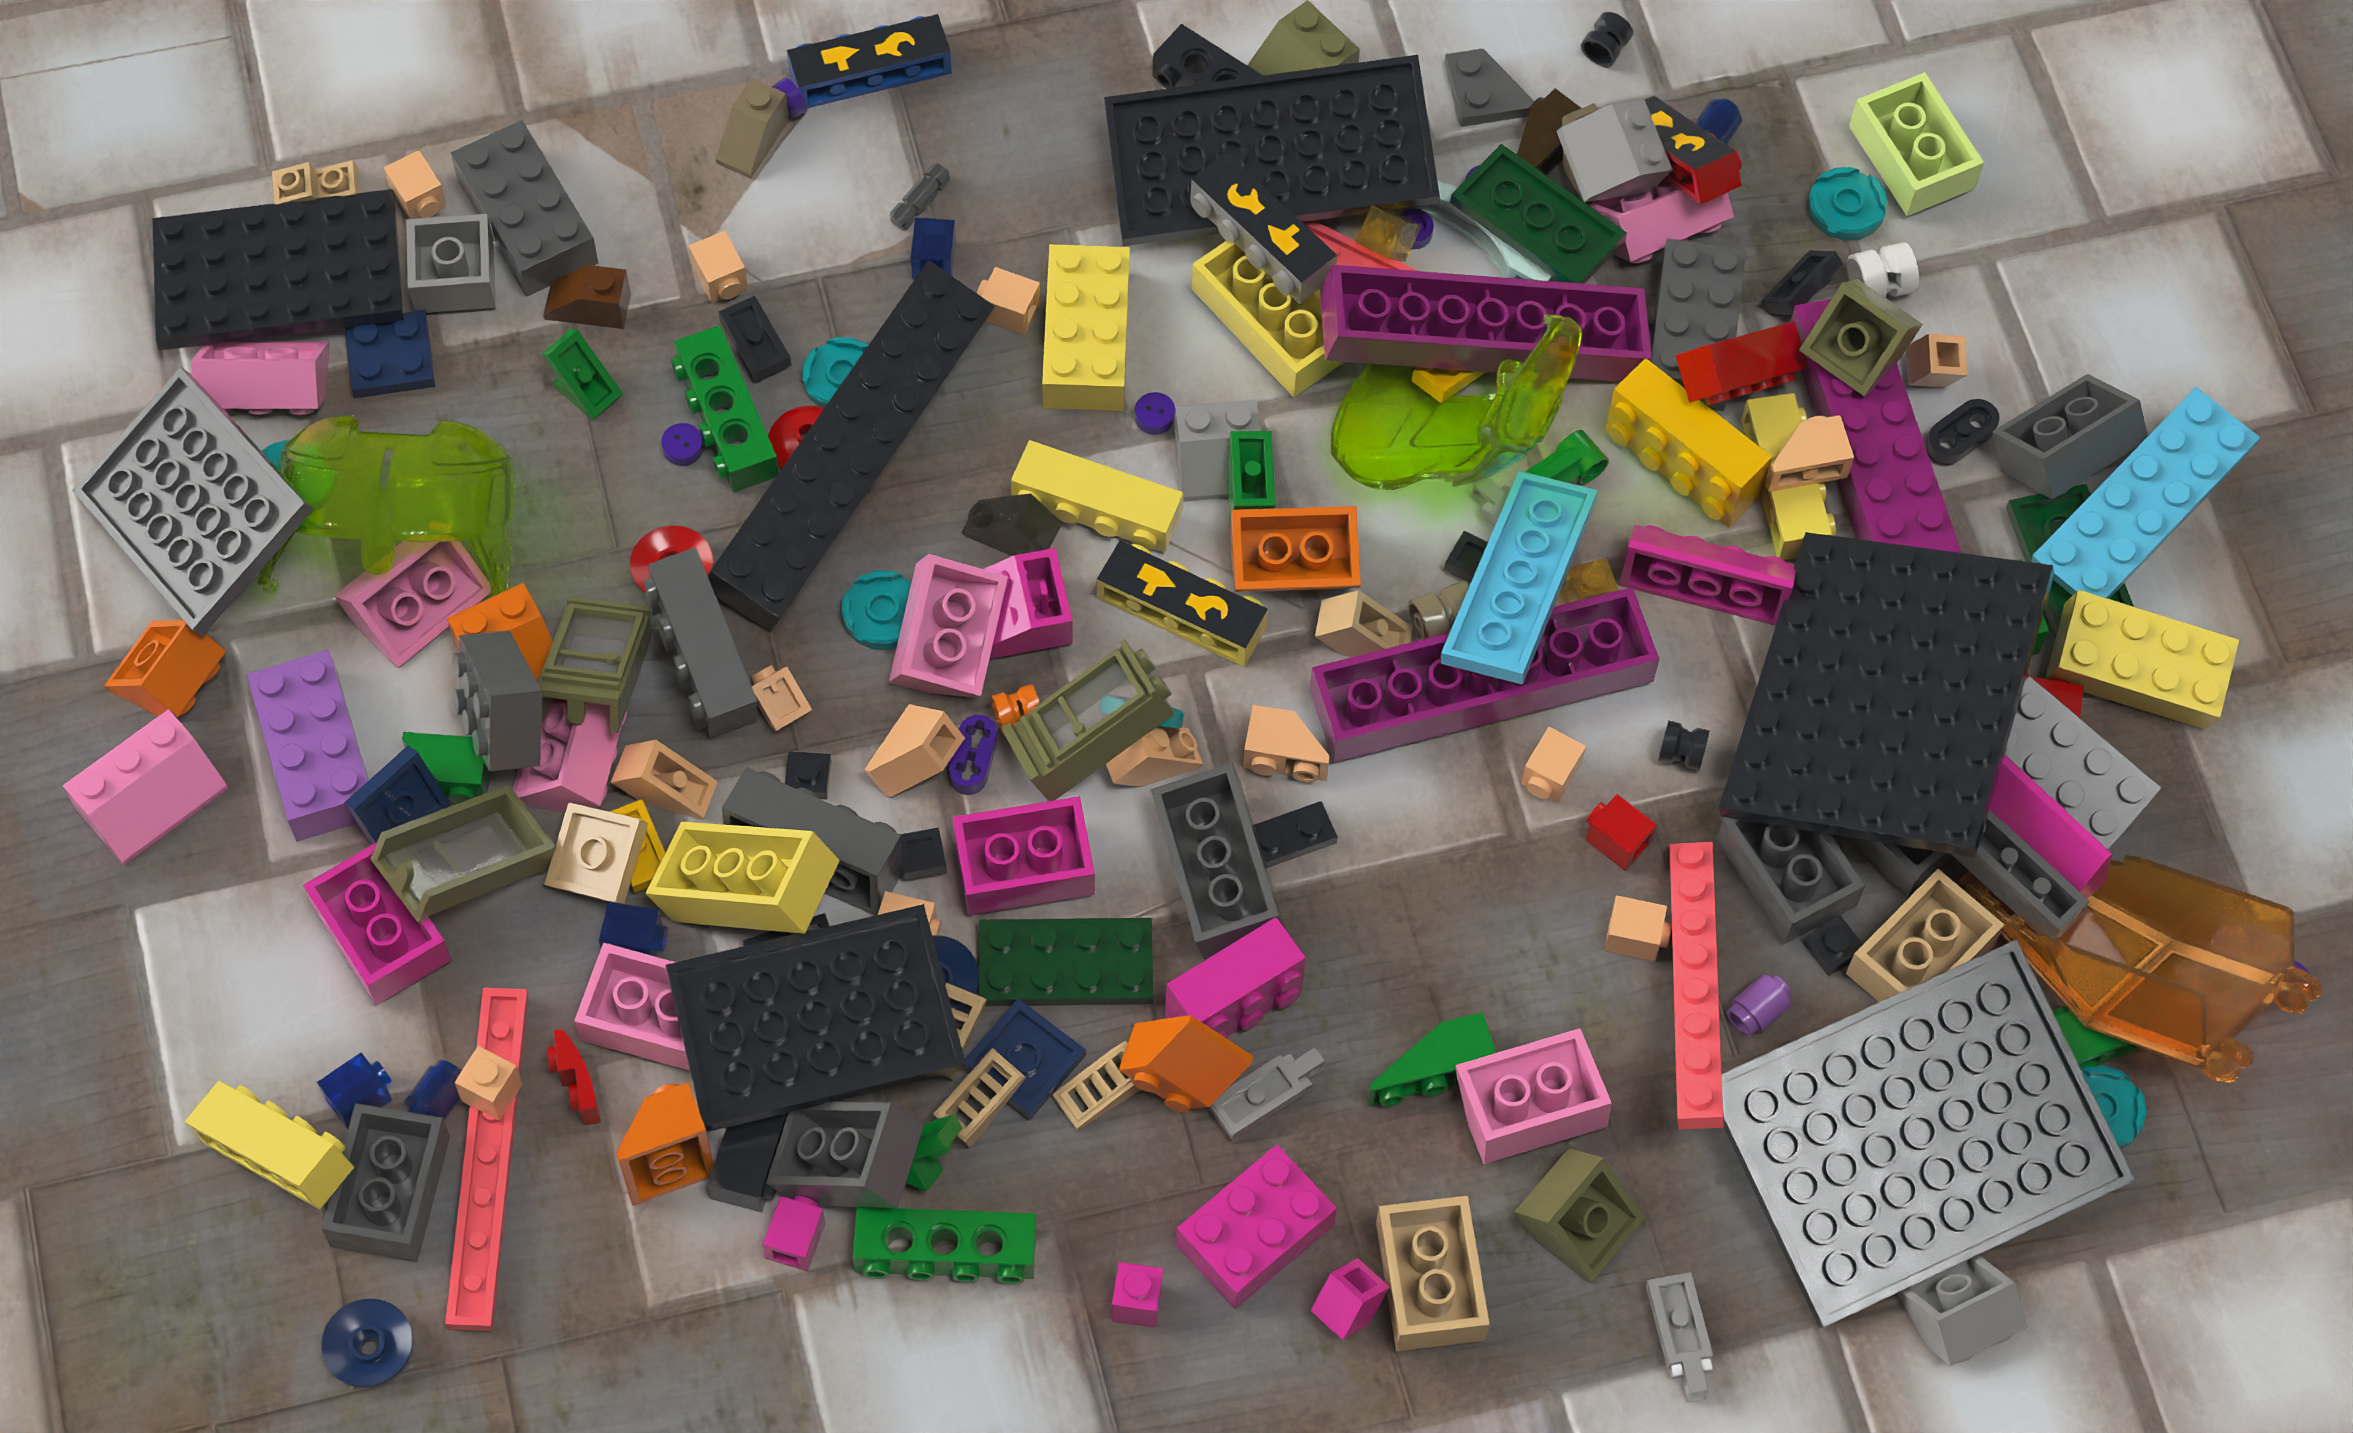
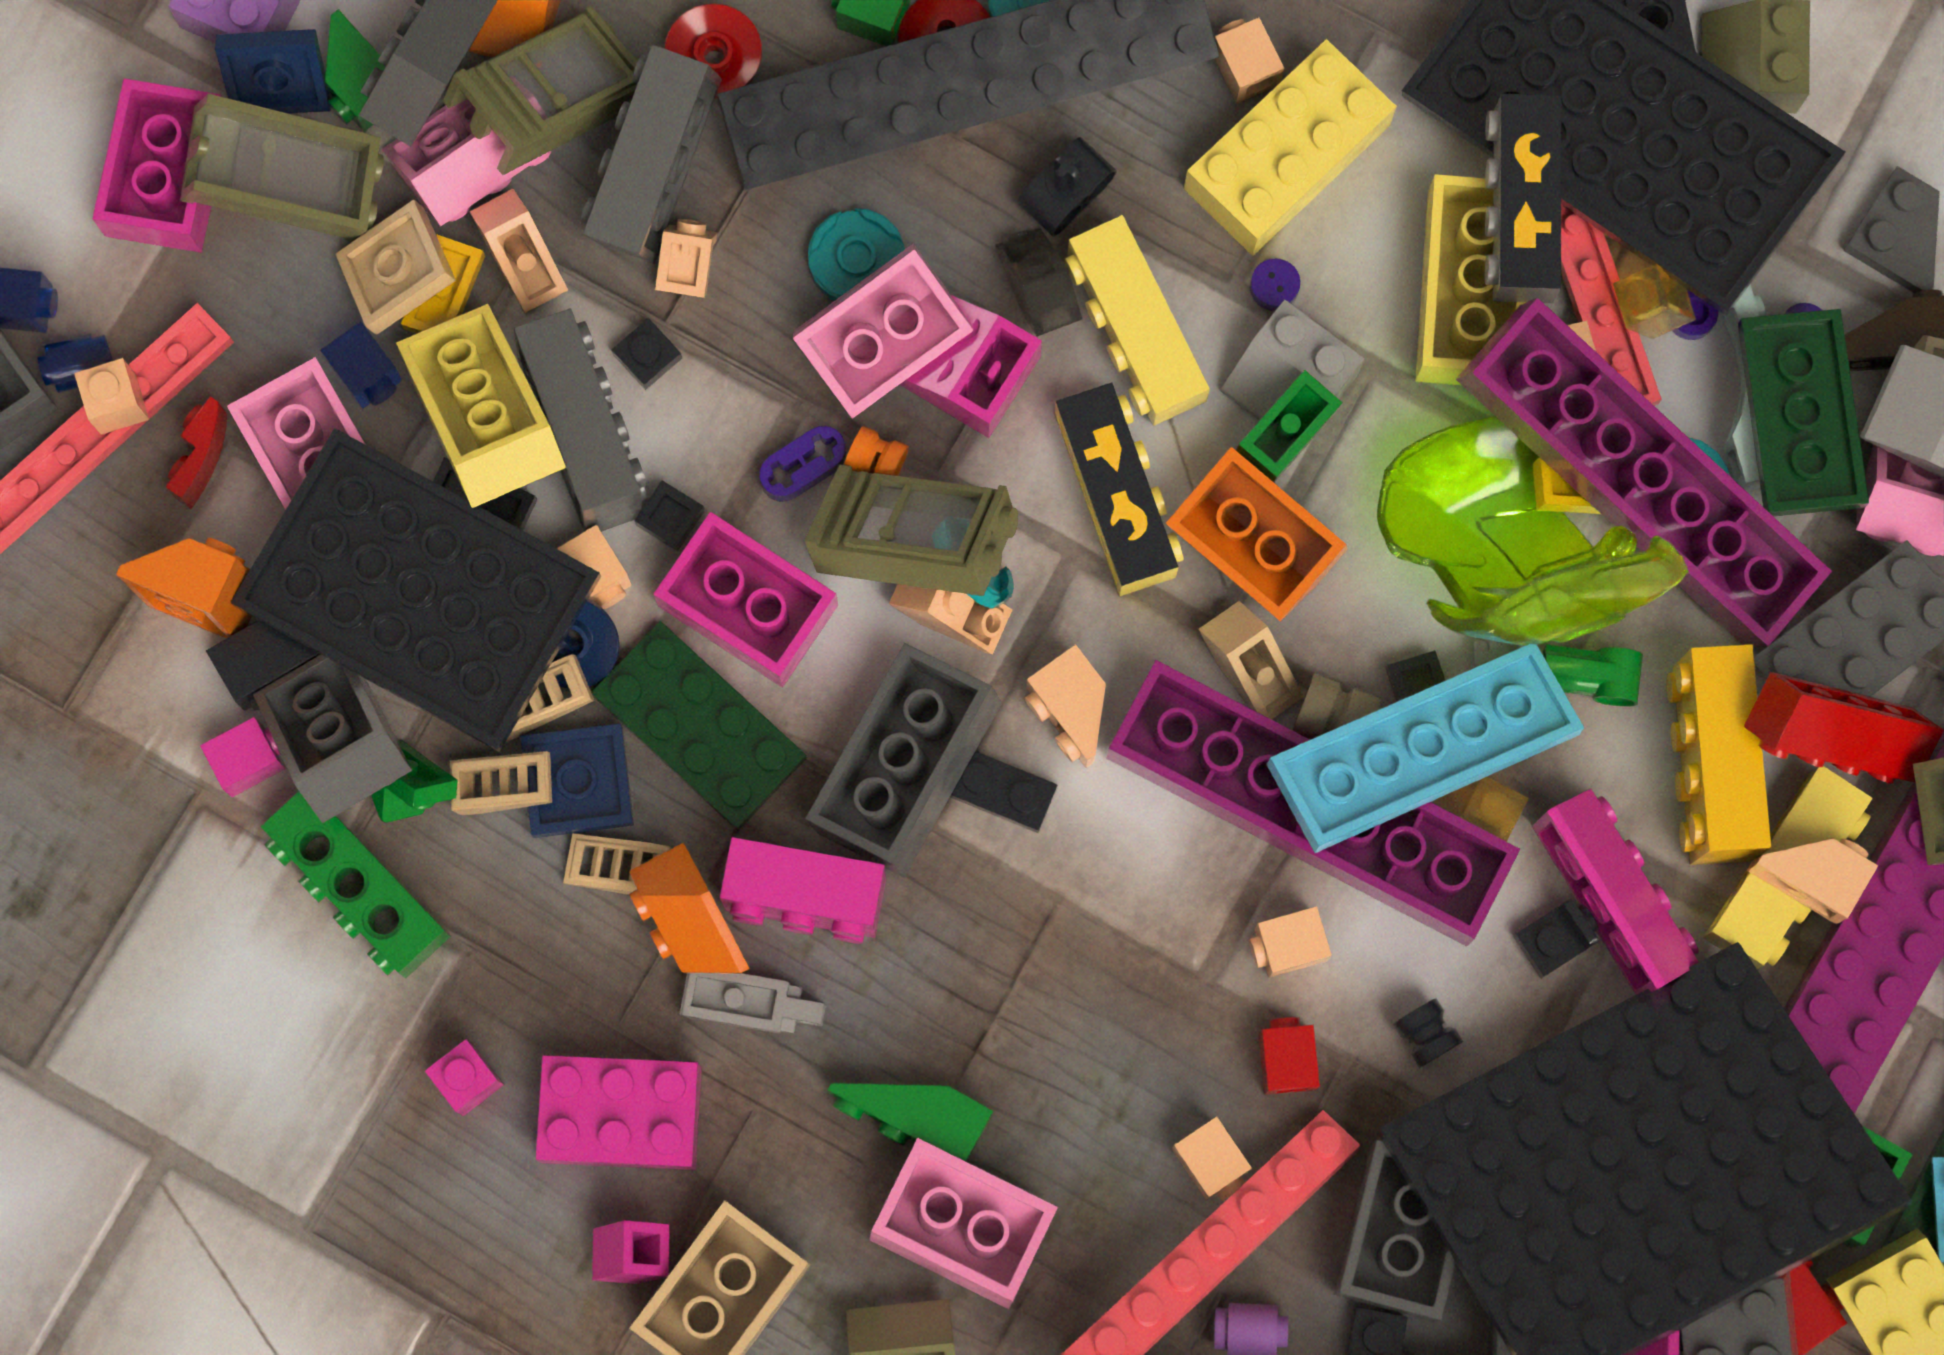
camera: 45 degrees right, 15 degrees up
(914, 750) = (748, 415): light nougat slope -> none
(973, 460) = (1067, 186): none -> black beam
(1700, 628) = (1558, 937): none -> black bracket

